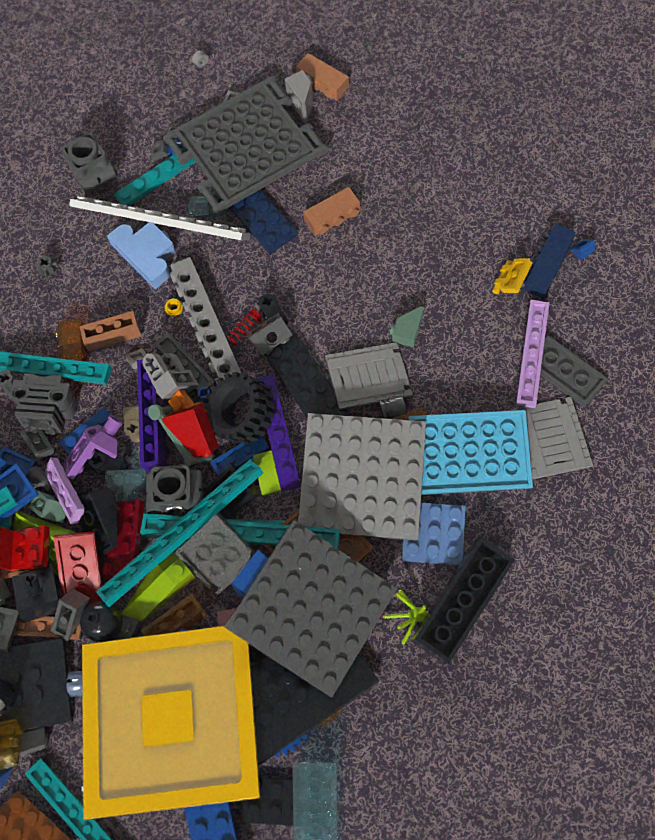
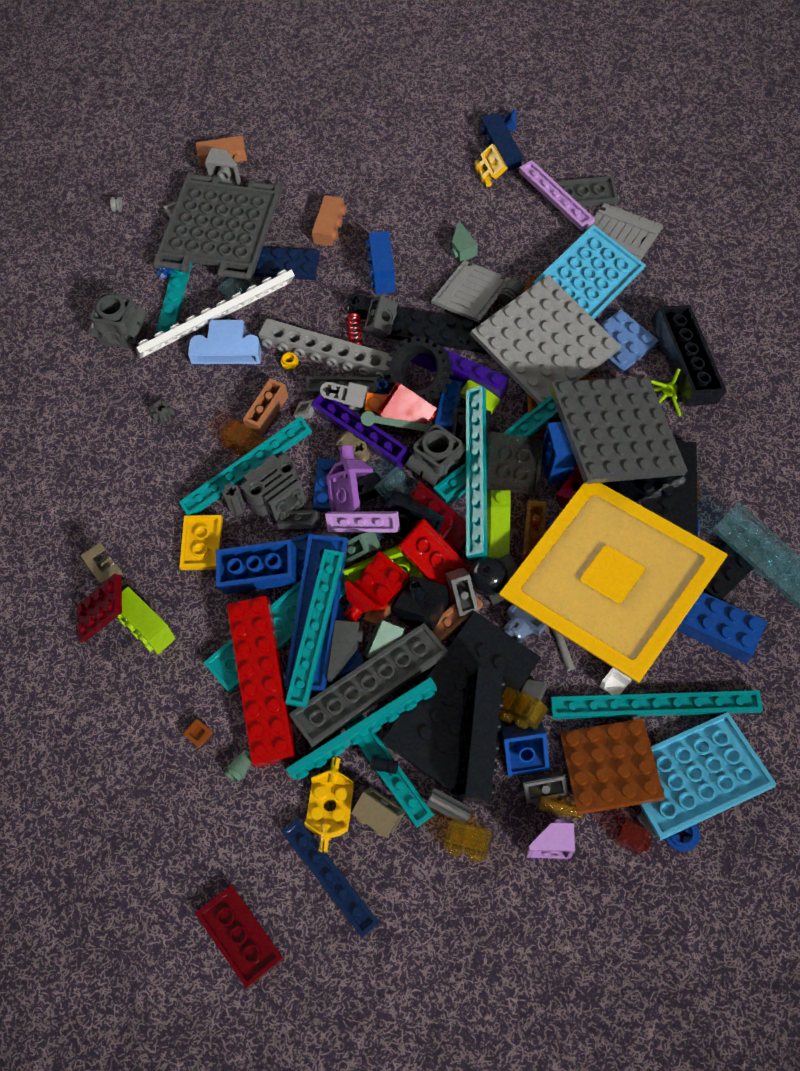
camera: 50 degrees left, 5 degrees down
(159, 150) = (156, 278): dark grey tile -> none
(323, 286) = (382, 262): none -> blue brick

